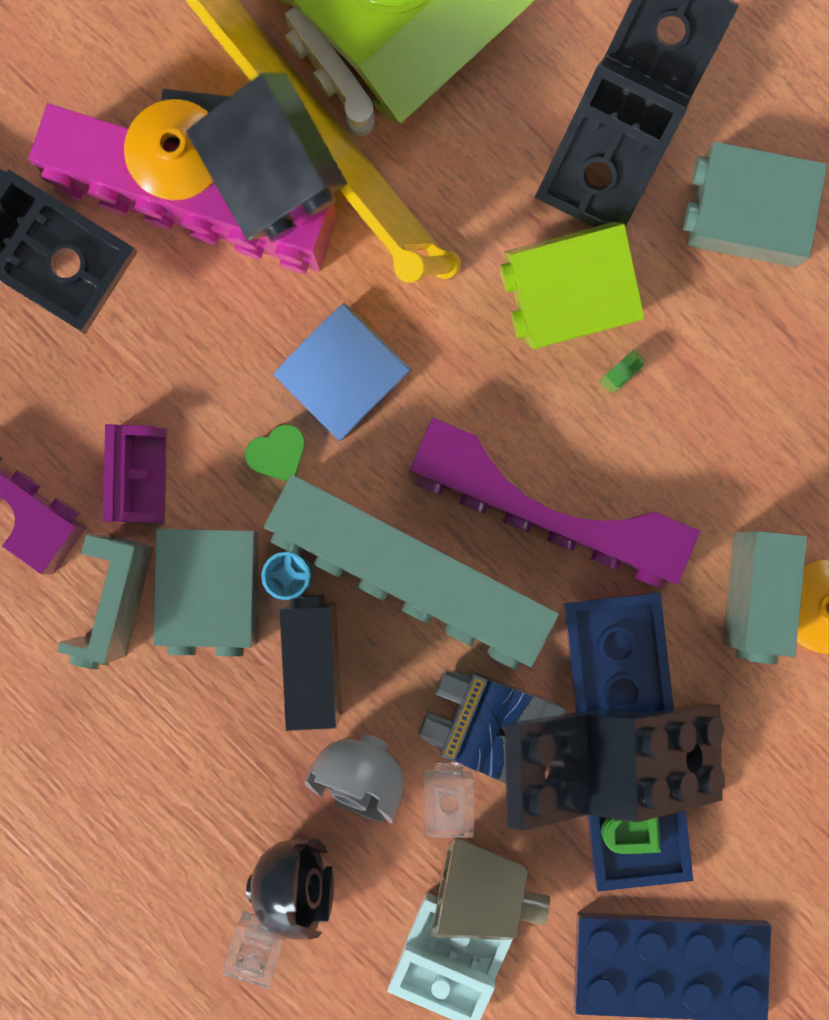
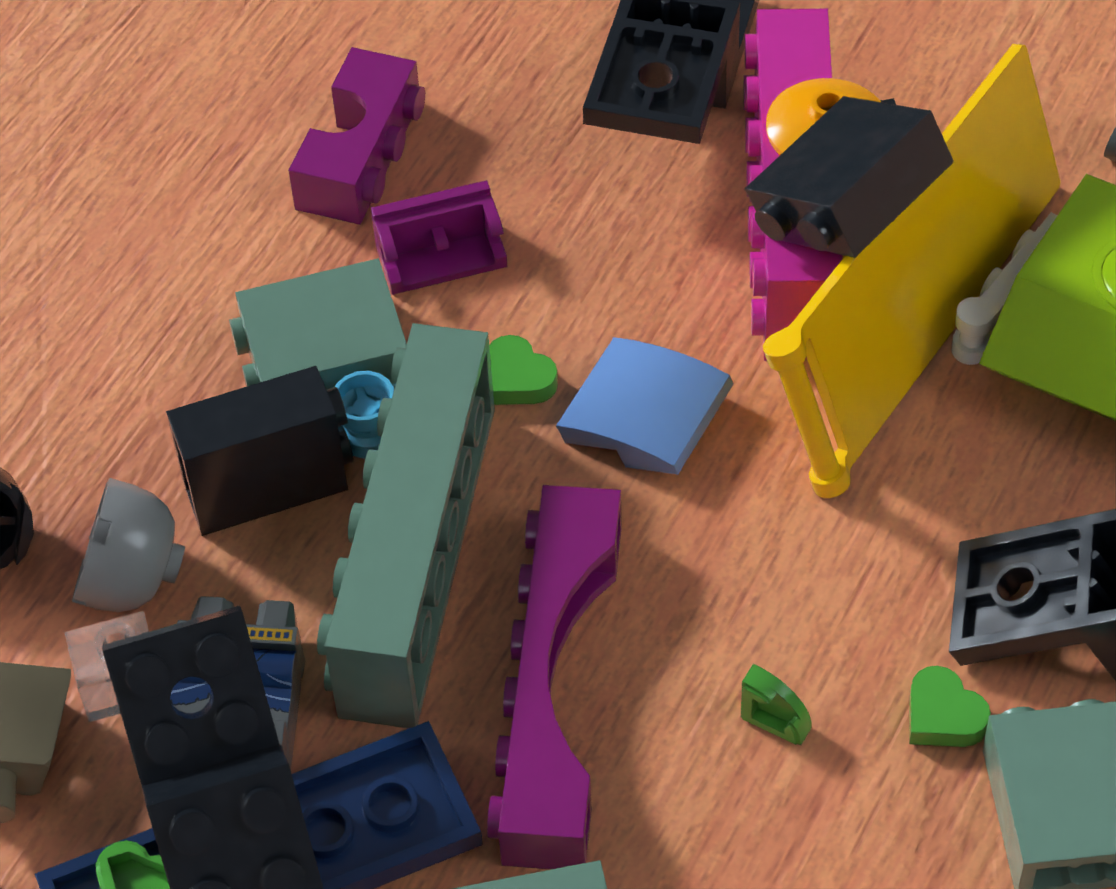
camera: 75 degrees right, 35 degrees down
(117, 604) = (275, 238): sand green panel -> none
(572, 285) = (860, 602): lime brick -> none
(658, 259) = (944, 711): none -> bright green tile

